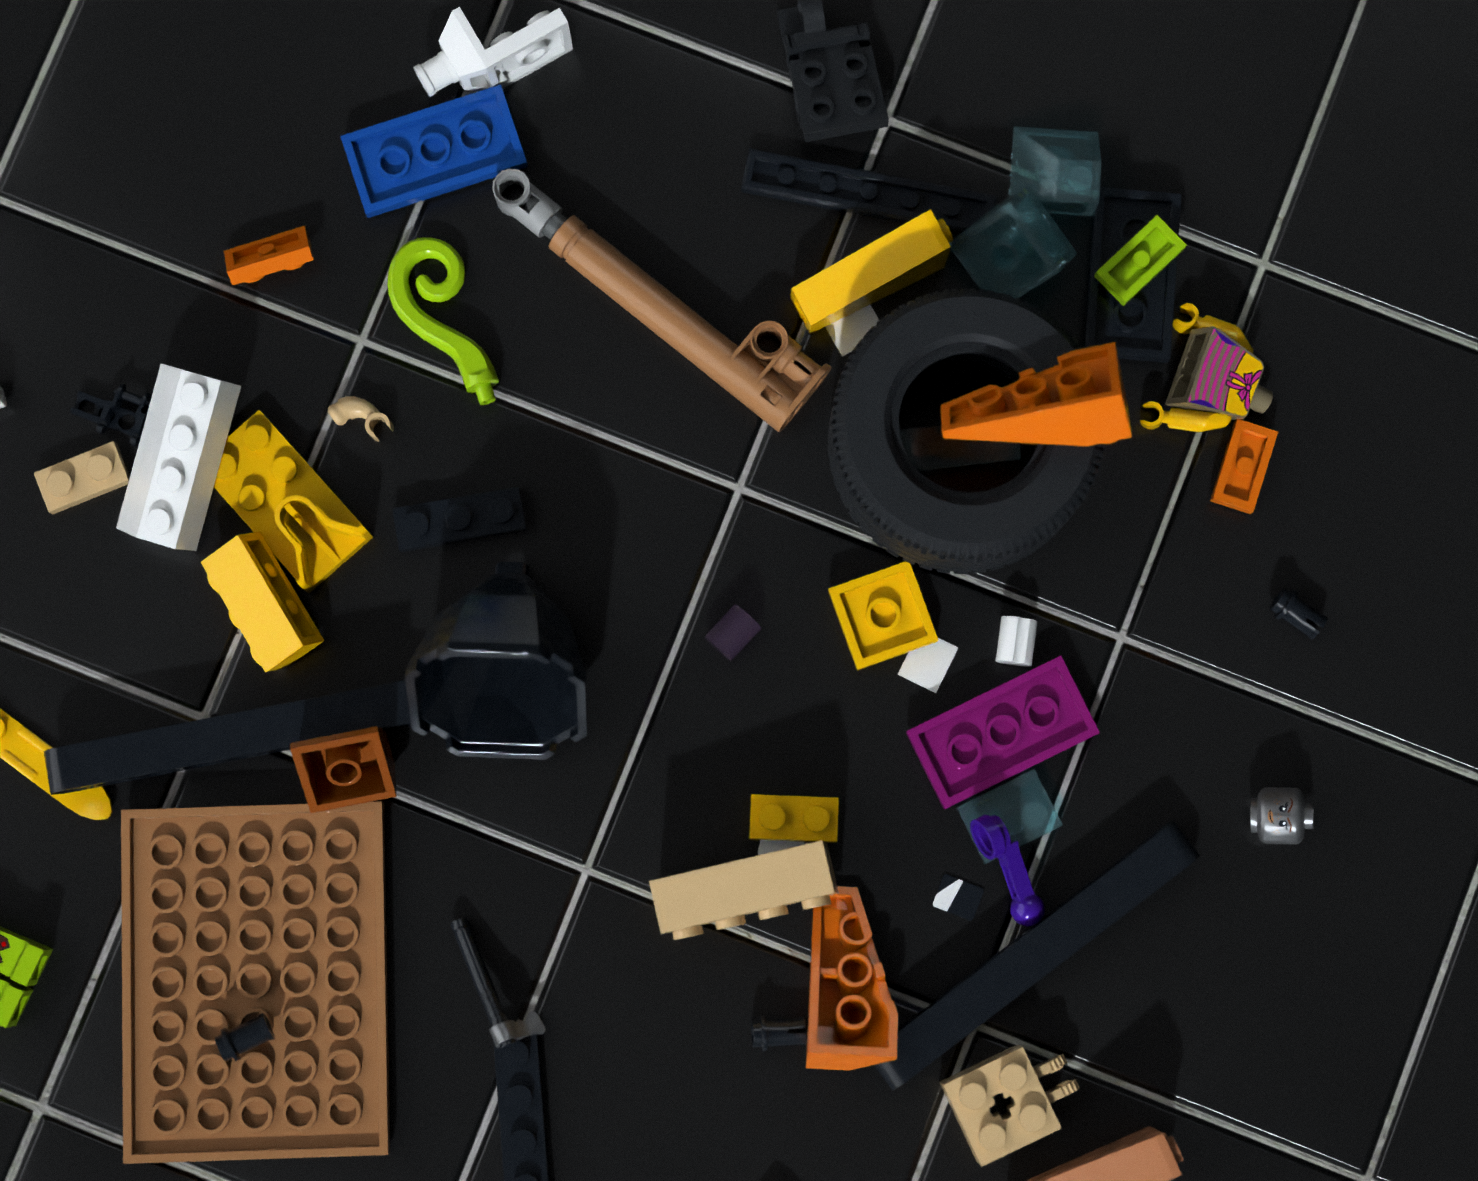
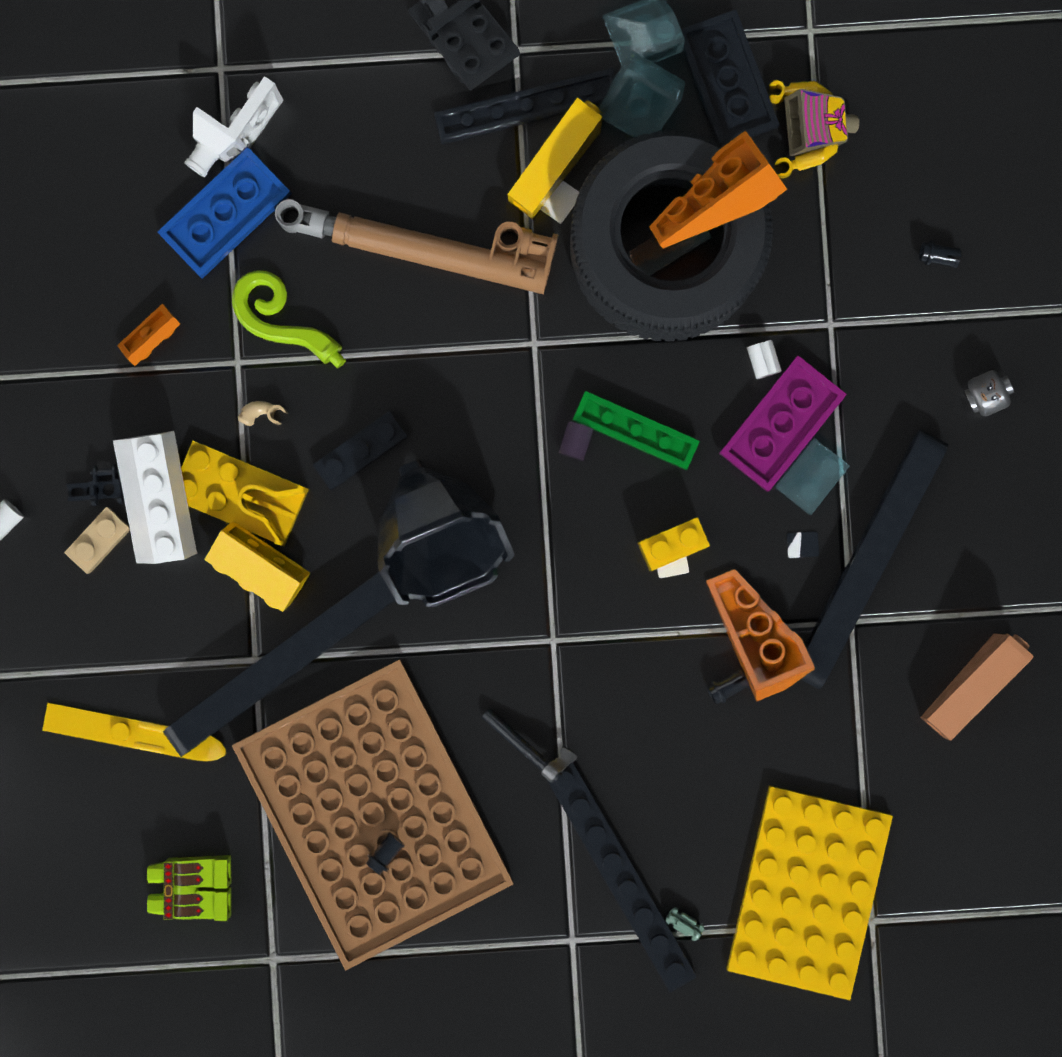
camera: 20 degrees left, 5 degrees up
(345, 768) = (366, 650): dark orange slope -> none
(743, 888) = (663, 605): tan brick -> none
(814, 654) = (636, 430): none -> green plate
(883, 615) = (668, 383): yellow plate -> none
(928, 664) = (711, 399): white sticker -> none
(994, 842) = (811, 498): dark purple piece -> none
(1027, 1115) = (913, 659): tan hinge -> none
(1140, 260) = (730, 67): lime plate -> none
(1244, 466) = (860, 173): orange plate -> none

